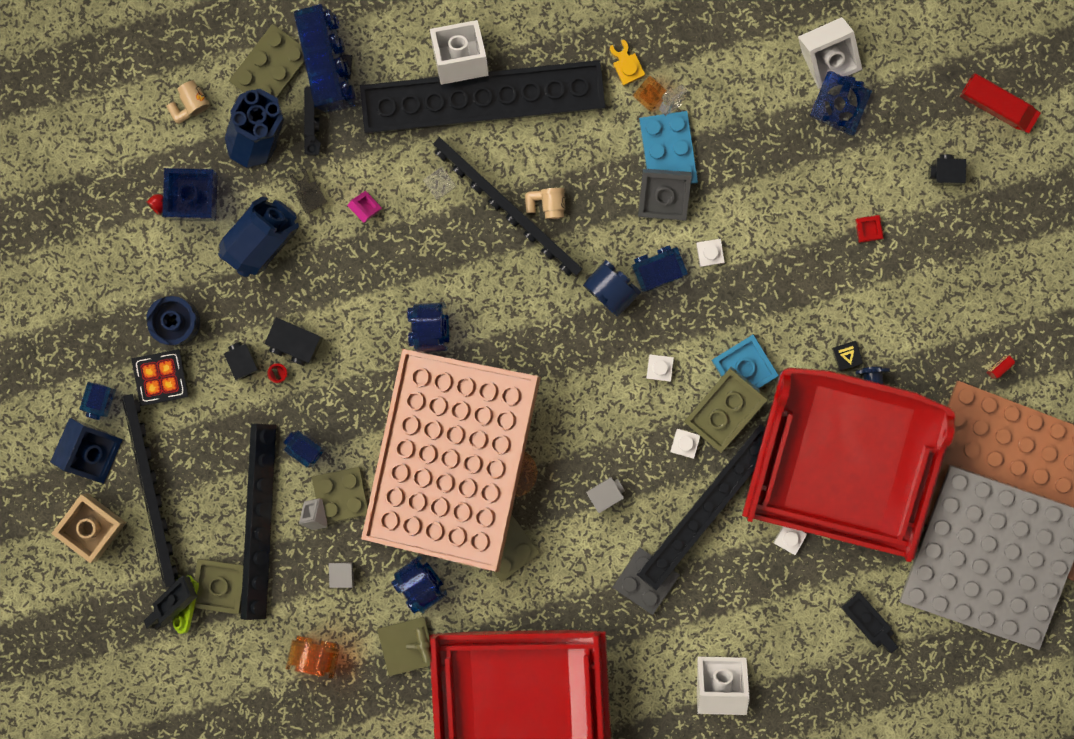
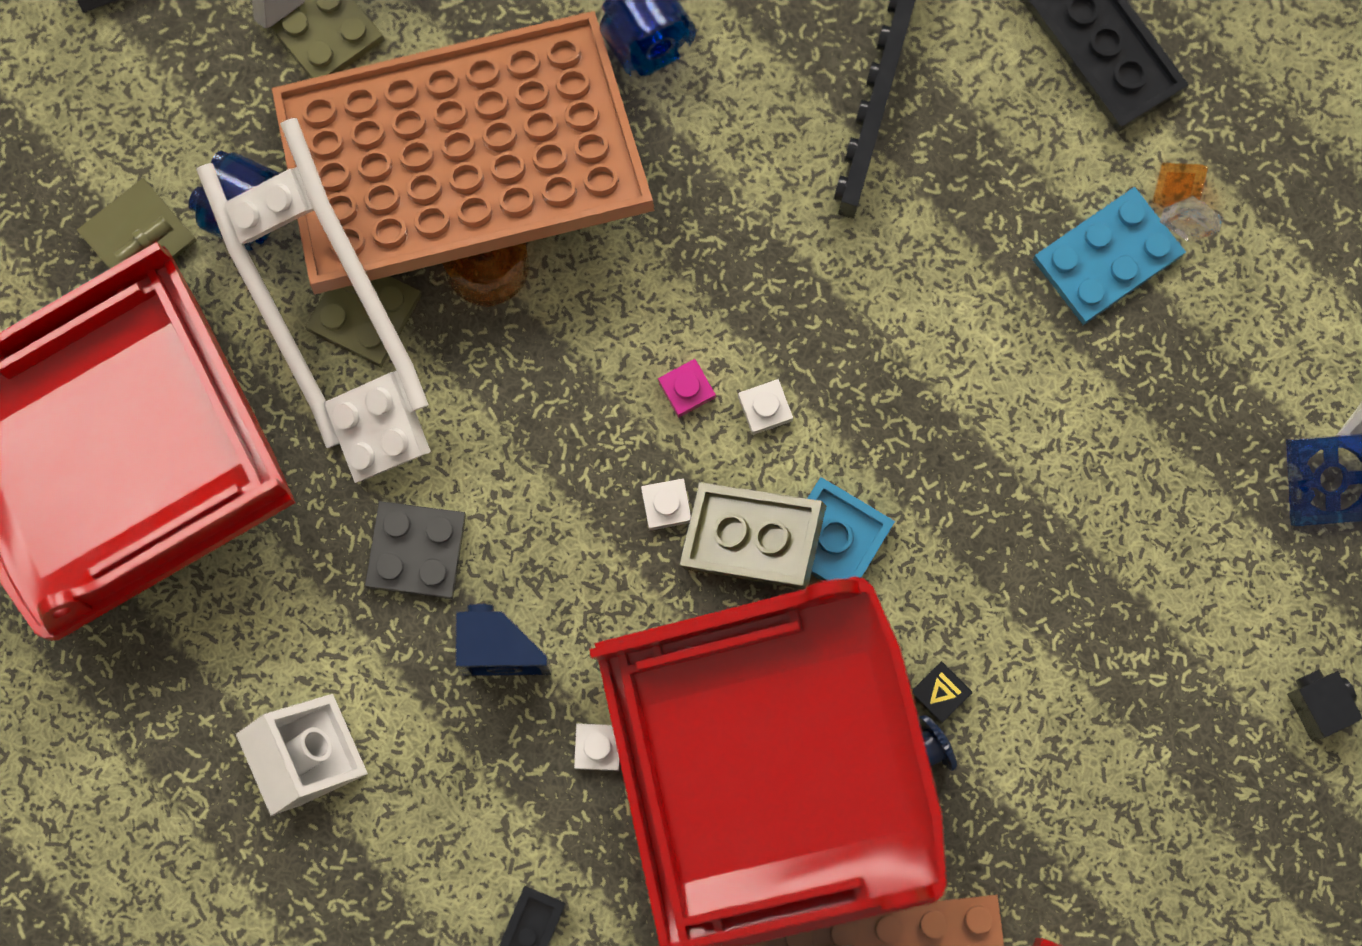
camera: 60 degrees right, 10 degrees down
(313, 658) = (52, 98): clear orange brick -> none
(341, 575) = (203, 90): light grey slope -> none
(552, 202) = (933, 121): tan piece -> none
(572, 571) = (376, 420): none -> white plate
(606, 494) = (522, 416): light grey brick -> none
(612, 288) = (850, 264): dark blue brick -> none
(628, 66) = (1201, 133): yellow plate -> none
(630, 402) = (686, 388): none -> dark pink plate
(658, 269) = (918, 326): clear blue brick -> none
(664, 194) = (1039, 276): dark grey plate -> none
(703, 512) = (558, 577): black plate -> none
(710, 252) = (986, 396): white plate -> none
(719, 564) = (495, 646): none -> dark blue slope
(869, 228) = (1161, 626): red tile -> none

